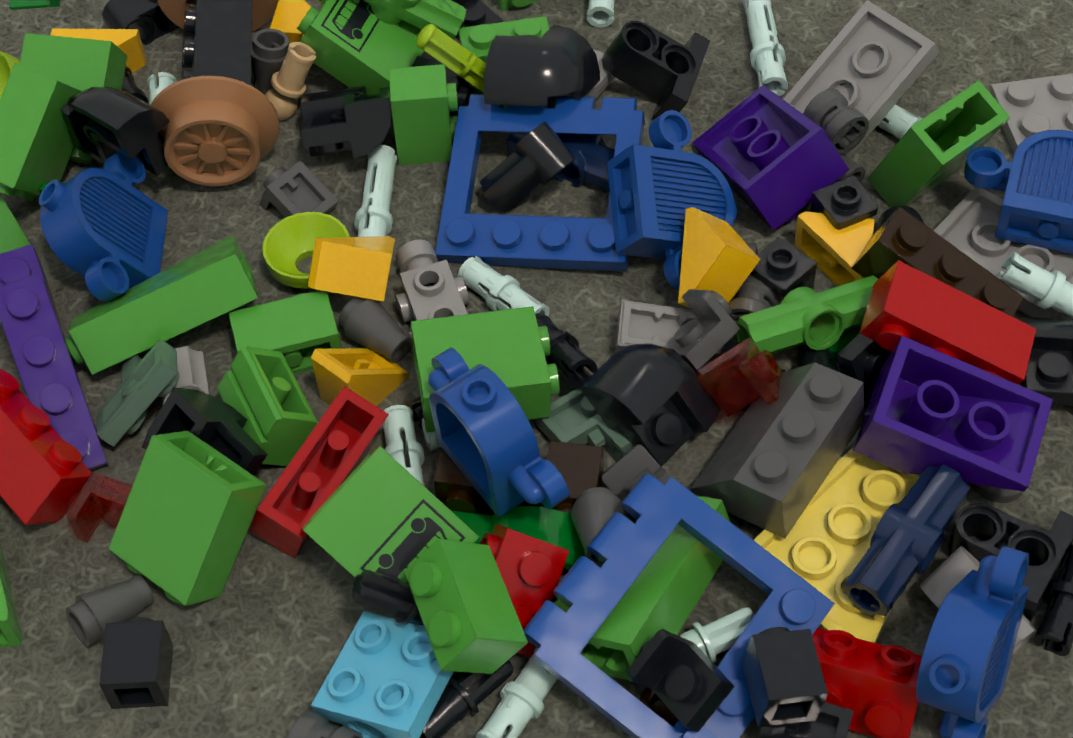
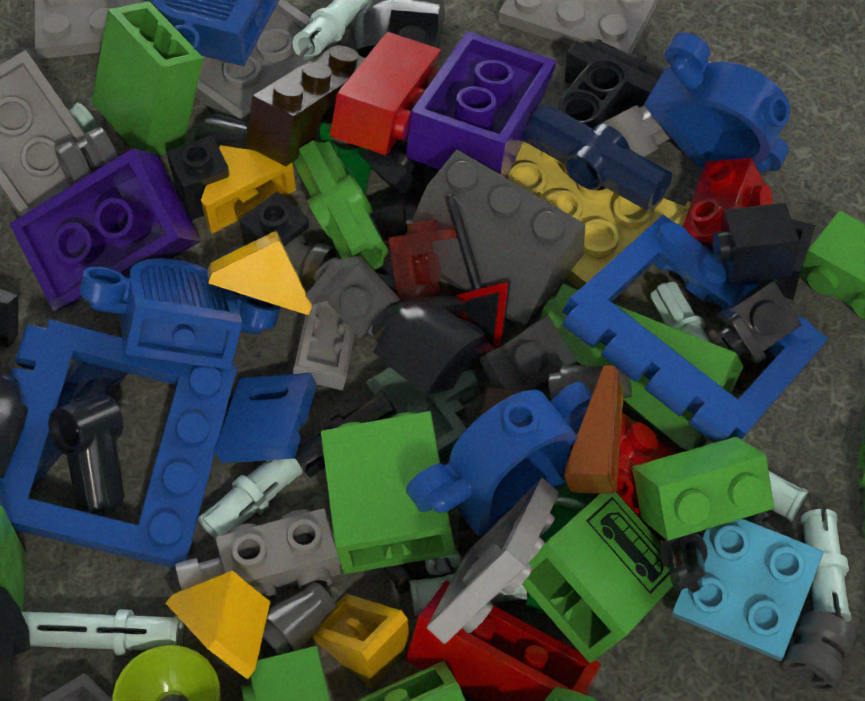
camera: 90 degrees left, 5 degrees up
(377, 423) = (495, 563): none -> light grey plate
(493, 501) = (595, 454): none -> dark orange slope
(568, 290) = (265, 418): none -> blue piece
(712, 444) = (487, 304): none -> black piece

